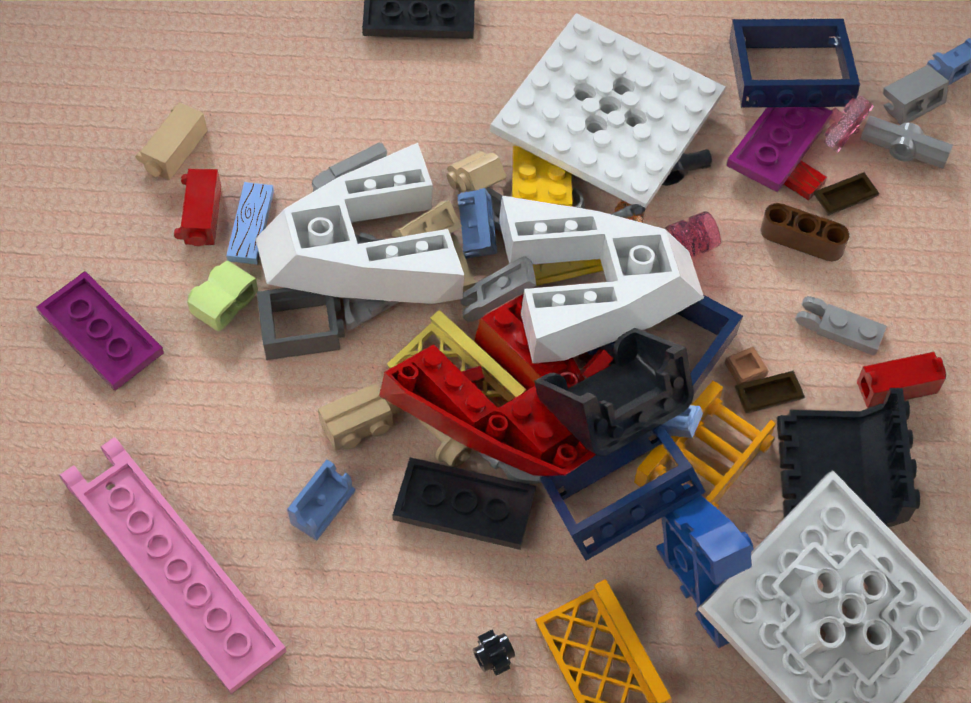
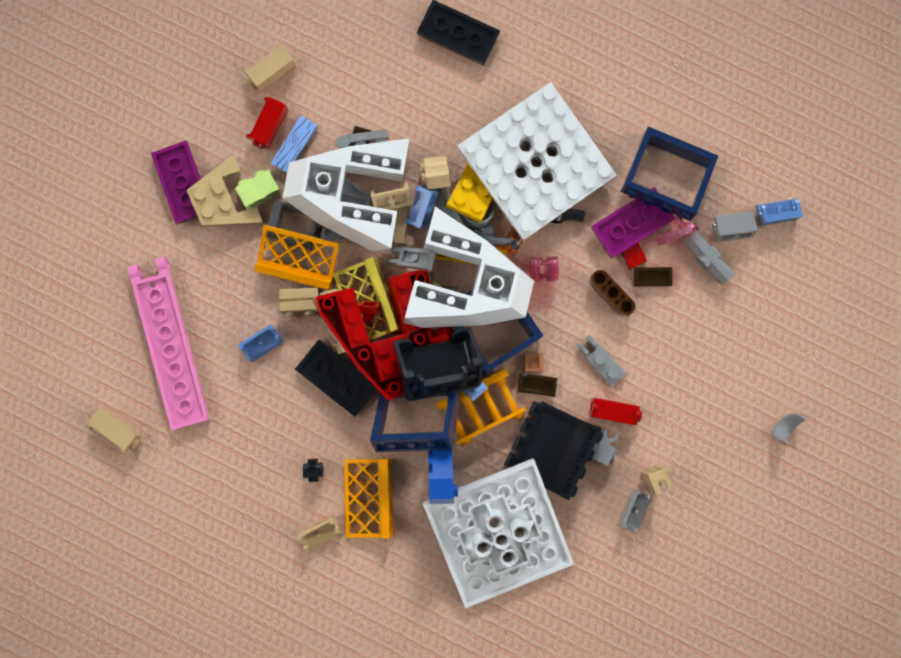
camera: 25 degrees right, 25 degrees up
(164, 334) = (213, 200): none -> tan wing
(323, 381) = (291, 272): none -> light orange fence
(926, 439) = (603, 452): none -> light grey brick

